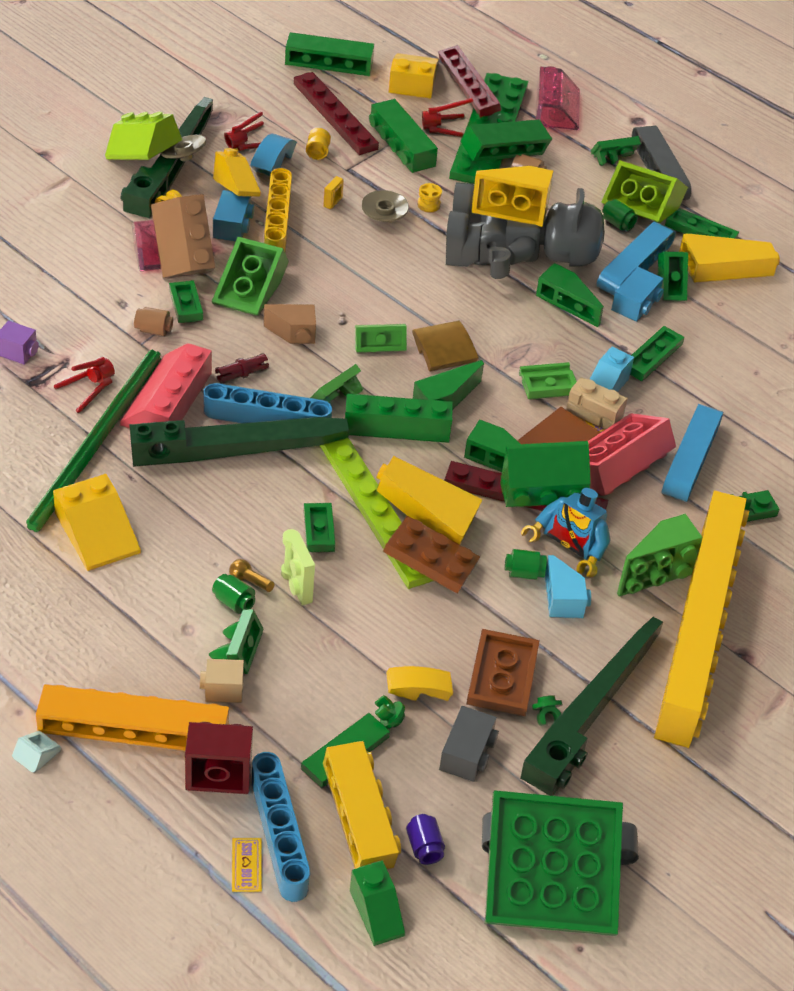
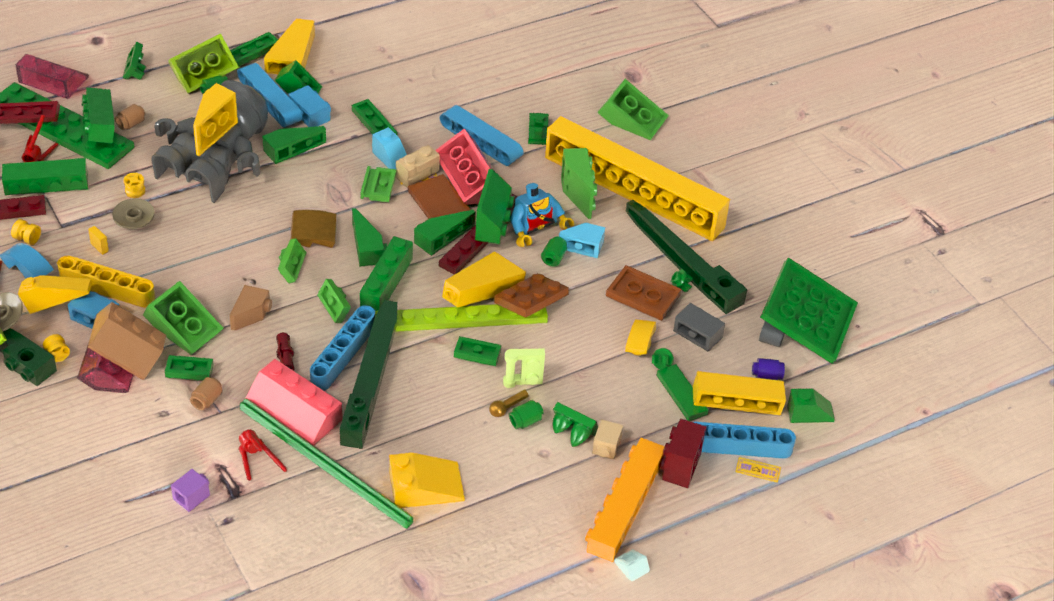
camera: 70 degrees left, 0 degrees up
(658, 155) = (158, 42): dark grey beam -> none

